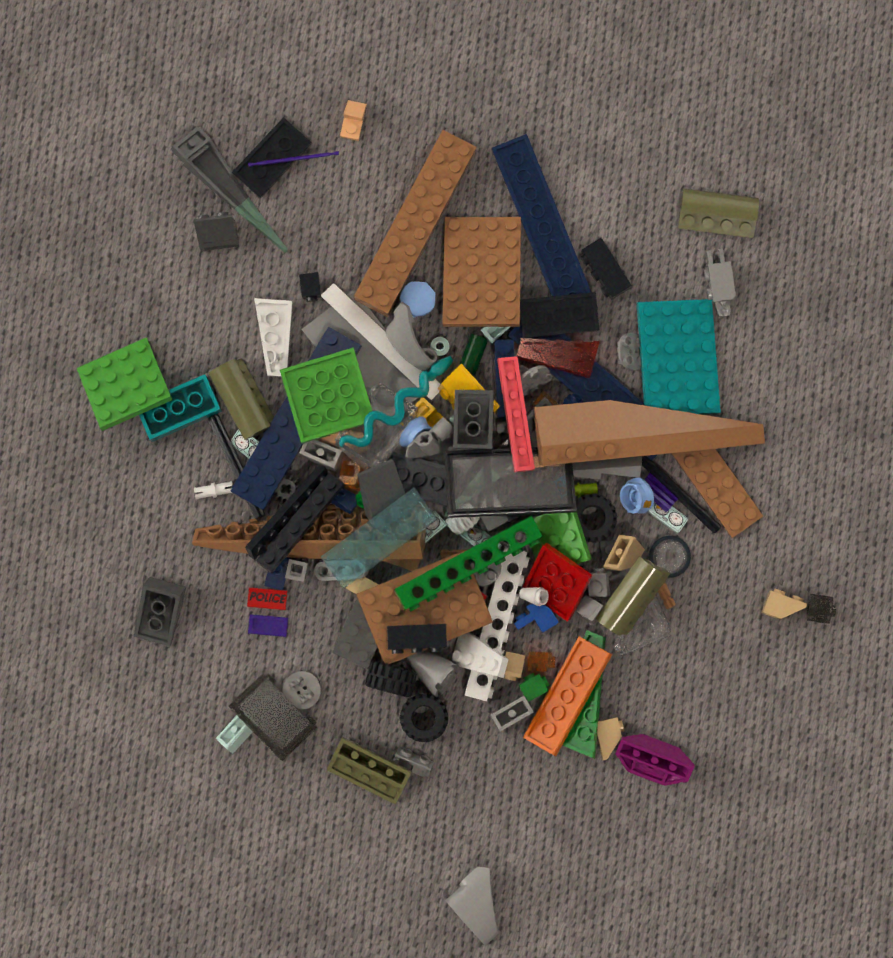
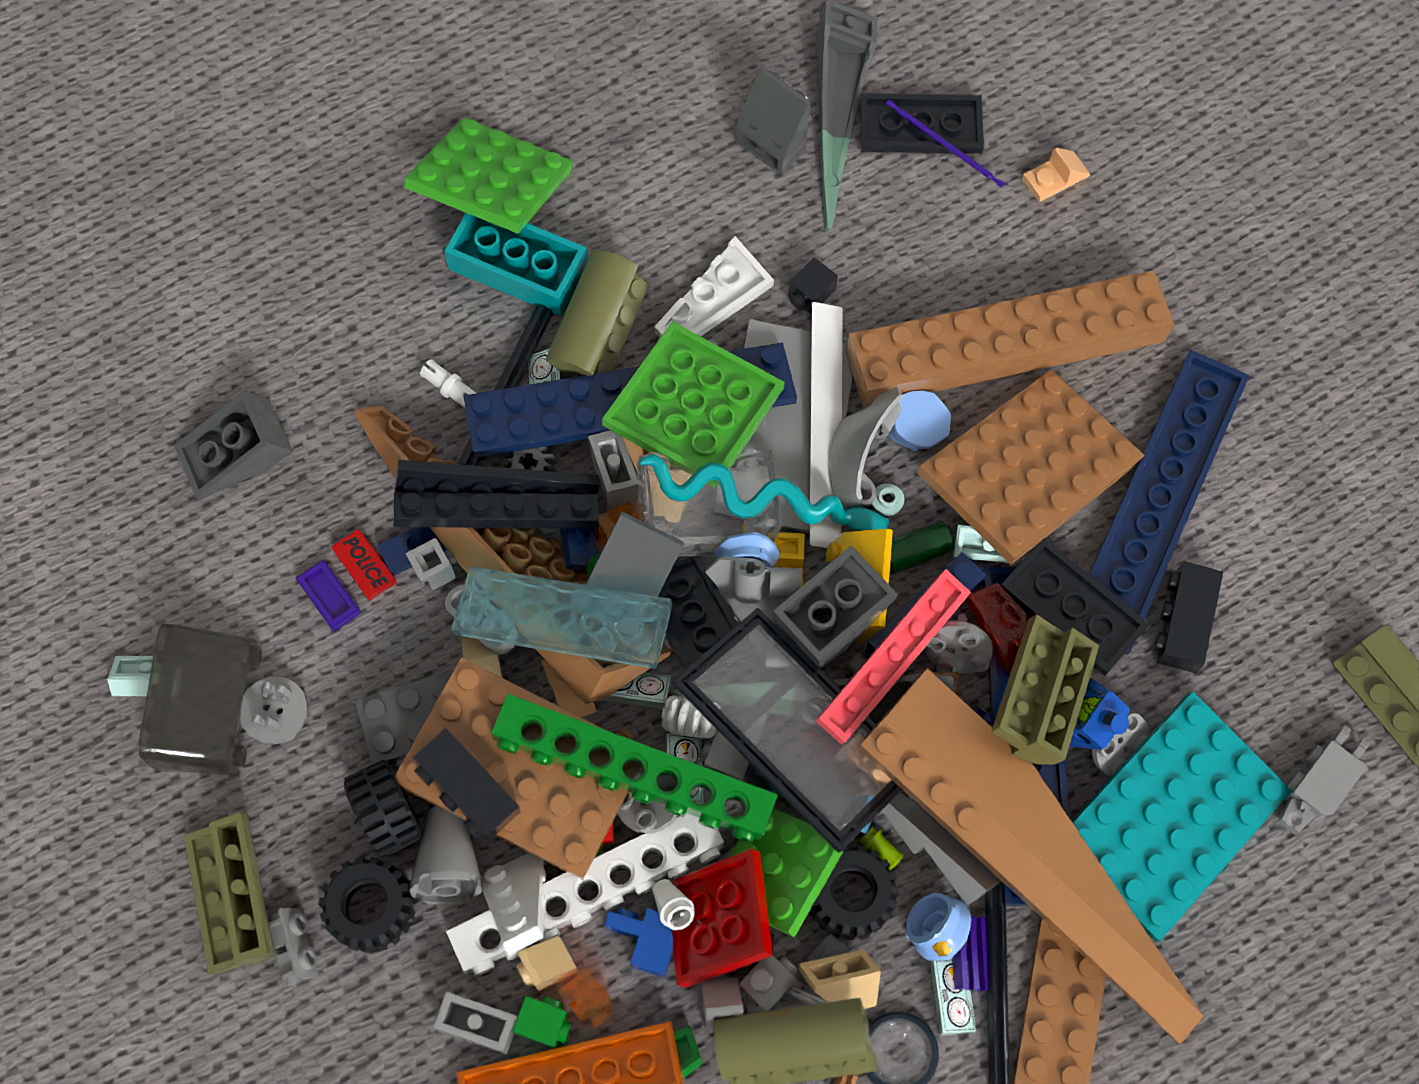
camera: 45 degrees right, 15 degrees down
(585, 366) = (1045, 692): none -> olive brick
(610, 355) = (1099, 718): none -> blue torso

